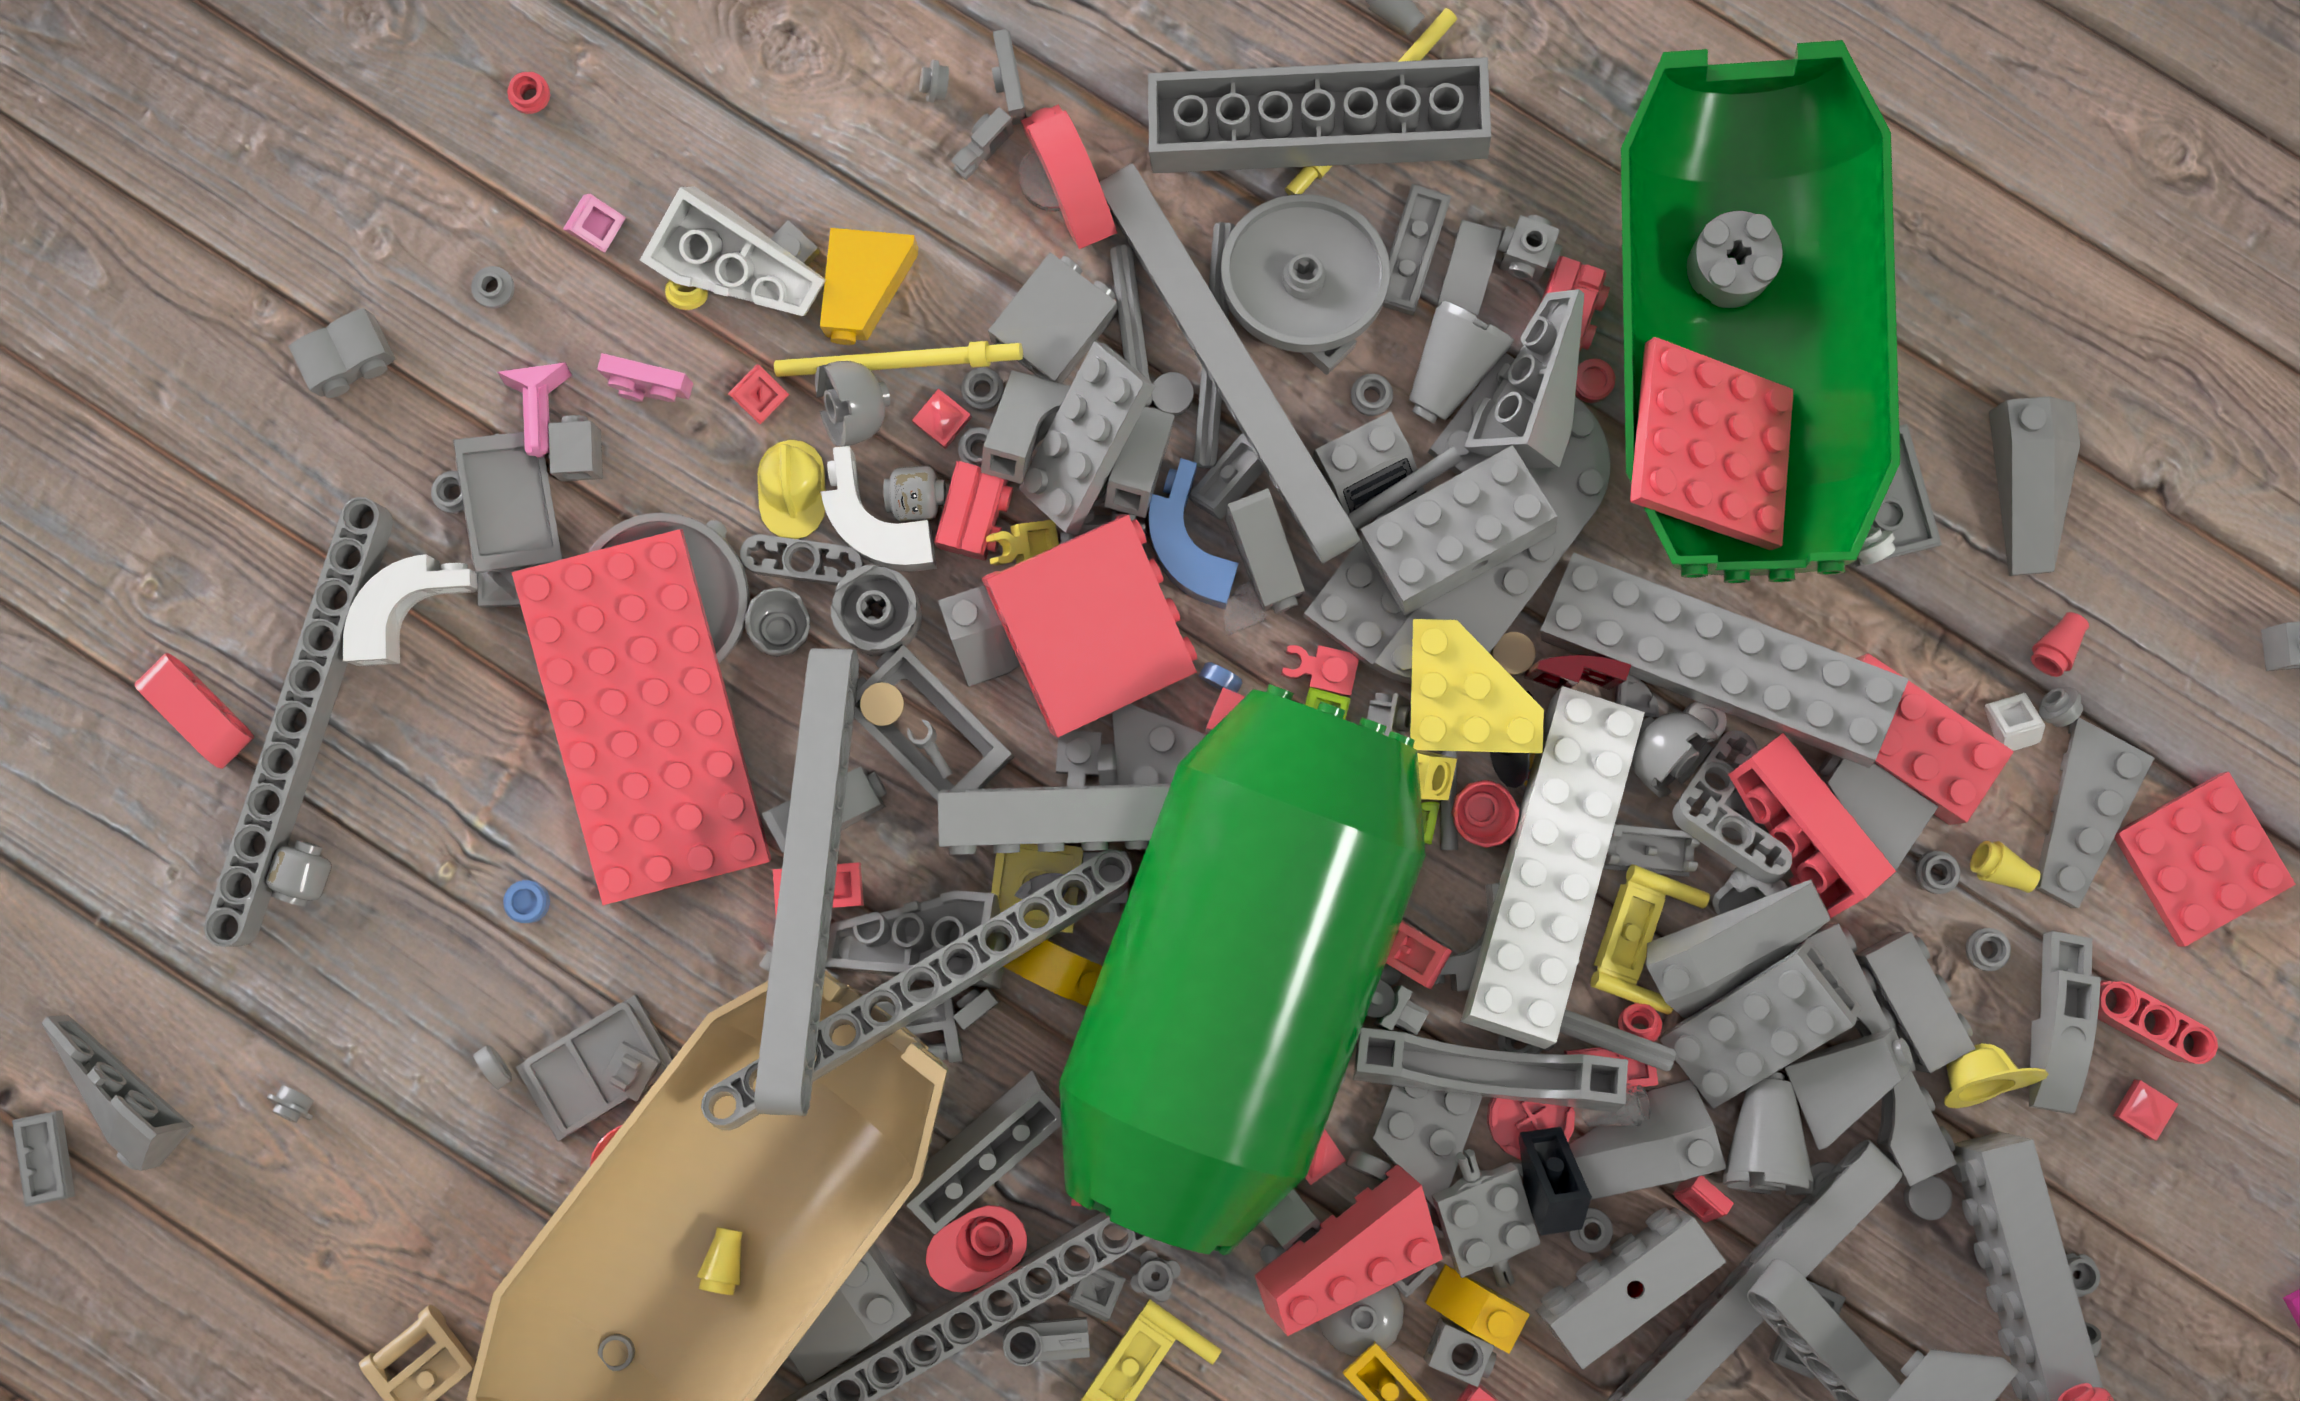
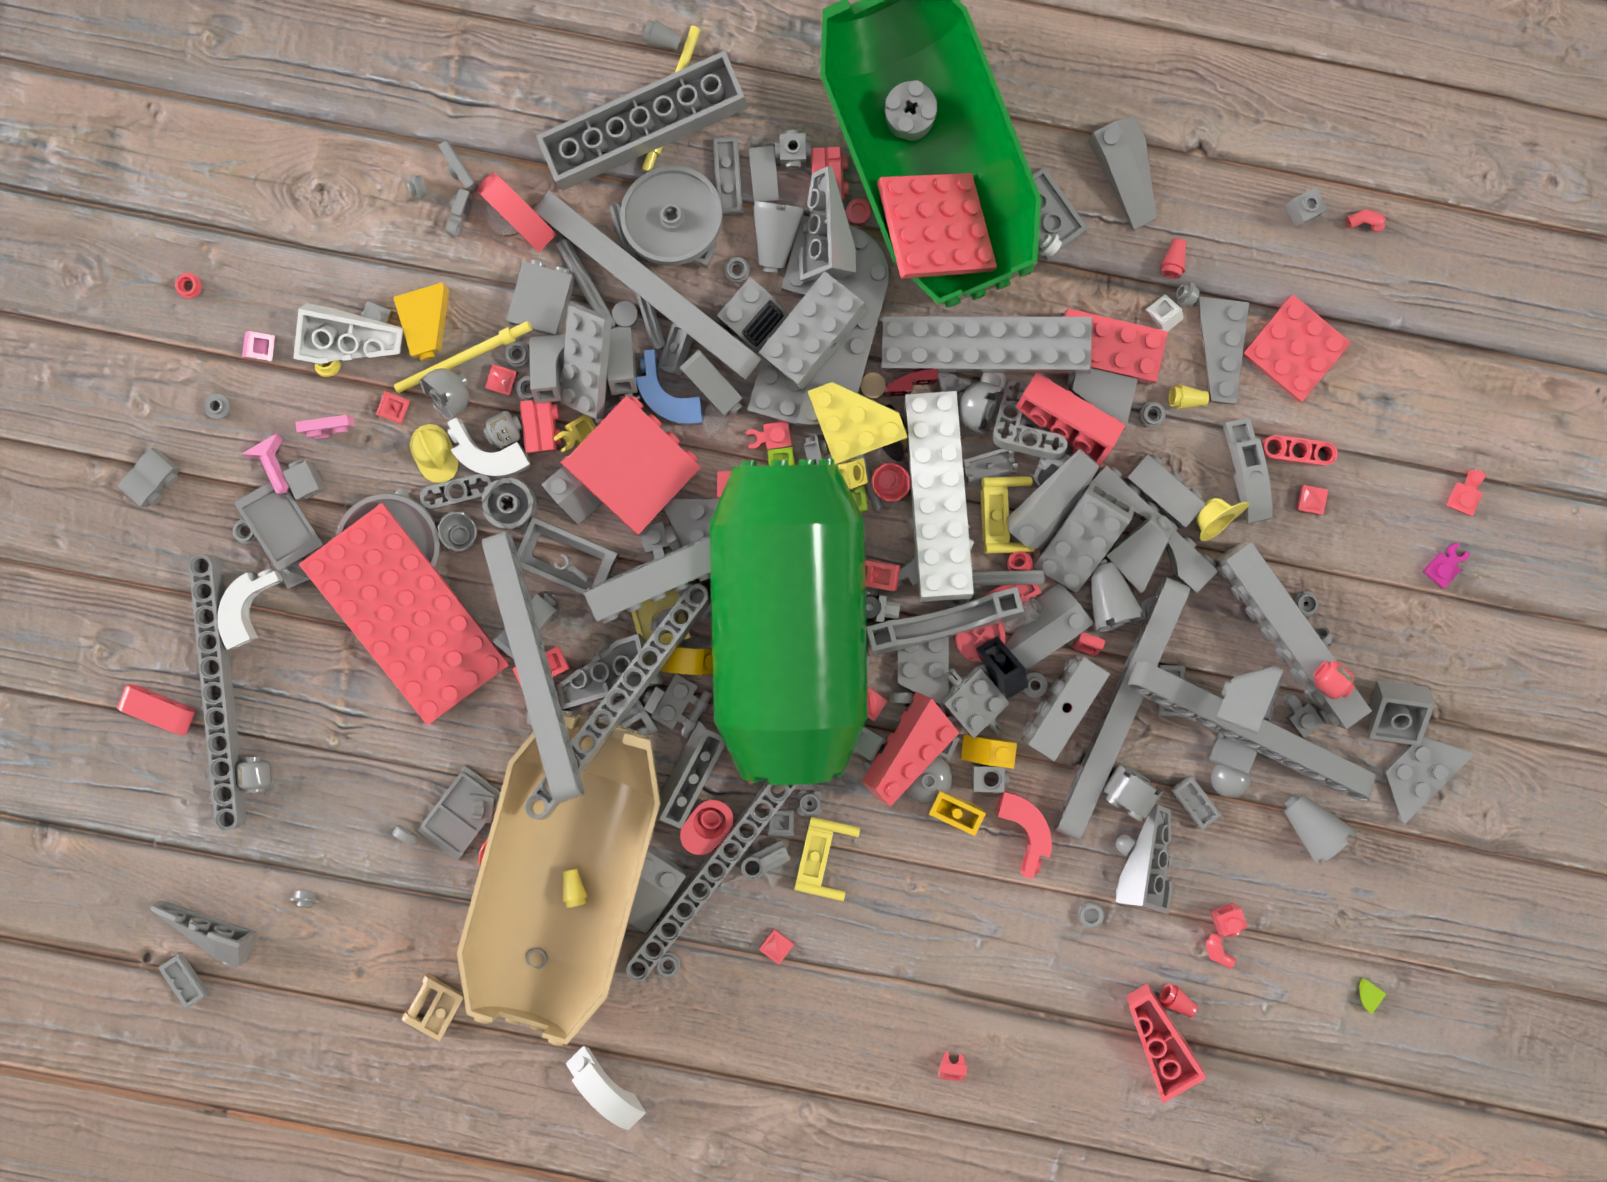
camera: 25 degrees left, 5 degrees up
(526, 901) = (385, 739): medium blue tile -> none
(882, 704) = (534, 554): tan tile -> none
(1008, 1024) = (674, 702): none -> light grey plate
(1220, 677) = (715, 464): medium blue tile -> none
(1404, 487) = (775, 317): light grey bar -> none
(1928, 1198) = (1211, 594): light grey tile -> none
(2000, 946) = (1202, 442): light grey plate -> none

